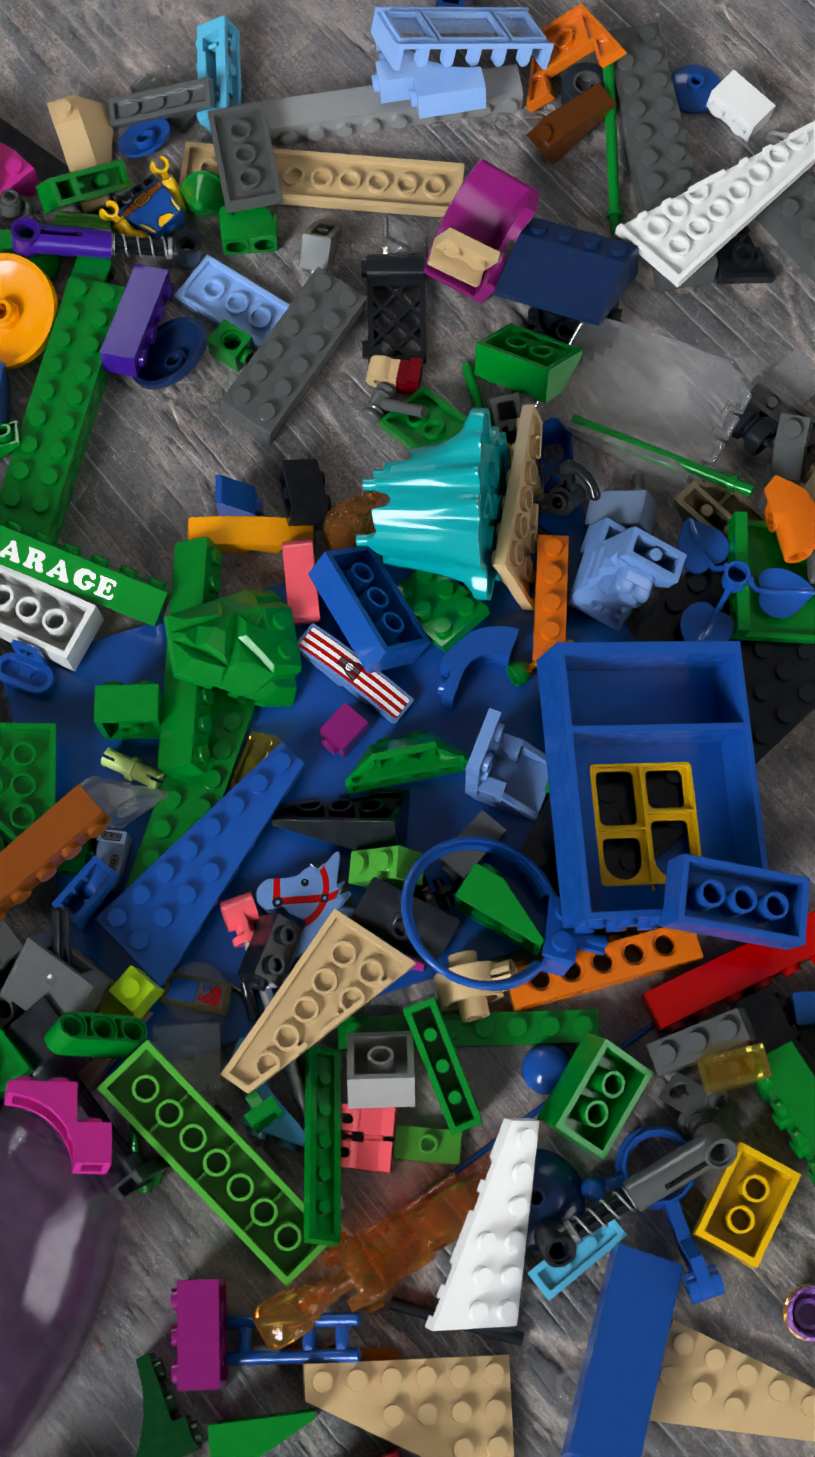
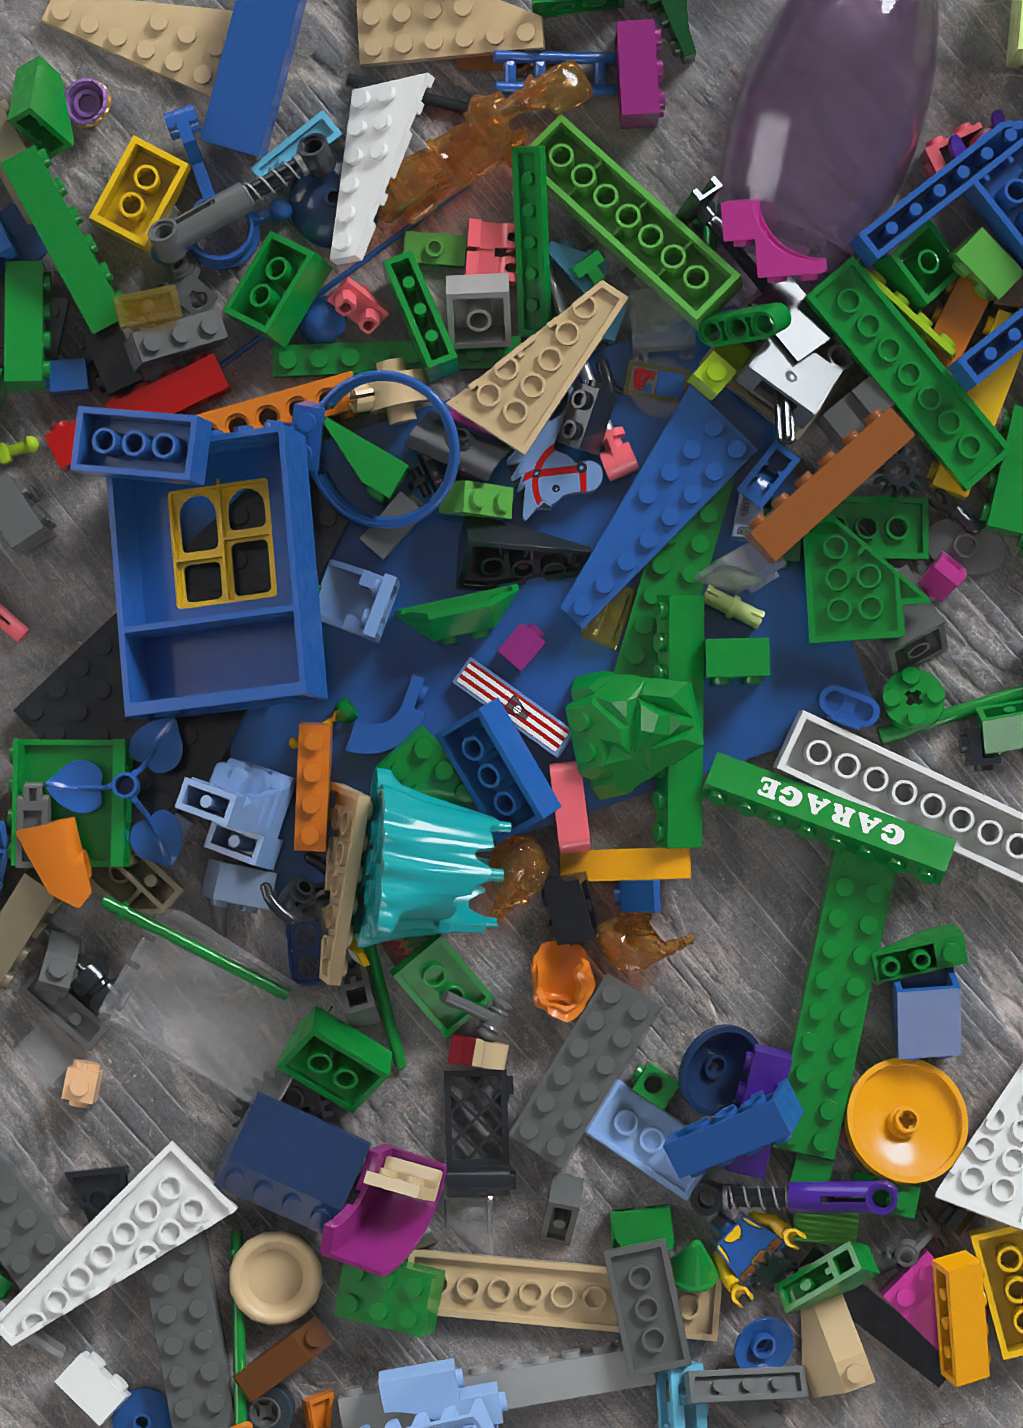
camera: 175 degrees right, 15 degrees up
(154, 289) = (734, 1132): none -> blue wedge
(243, 459) = (632, 942): none -> clear orange hair
(313, 429) = (561, 979): none -> orange hair
(458, 154) = (398, 1302): none -> green brick
(510, 1082) = (358, 304): none -> coral hips
(579, 188) = (275, 1278): none -> tan piece
(762, 347) = (82, 1083): none -> light nougat brick

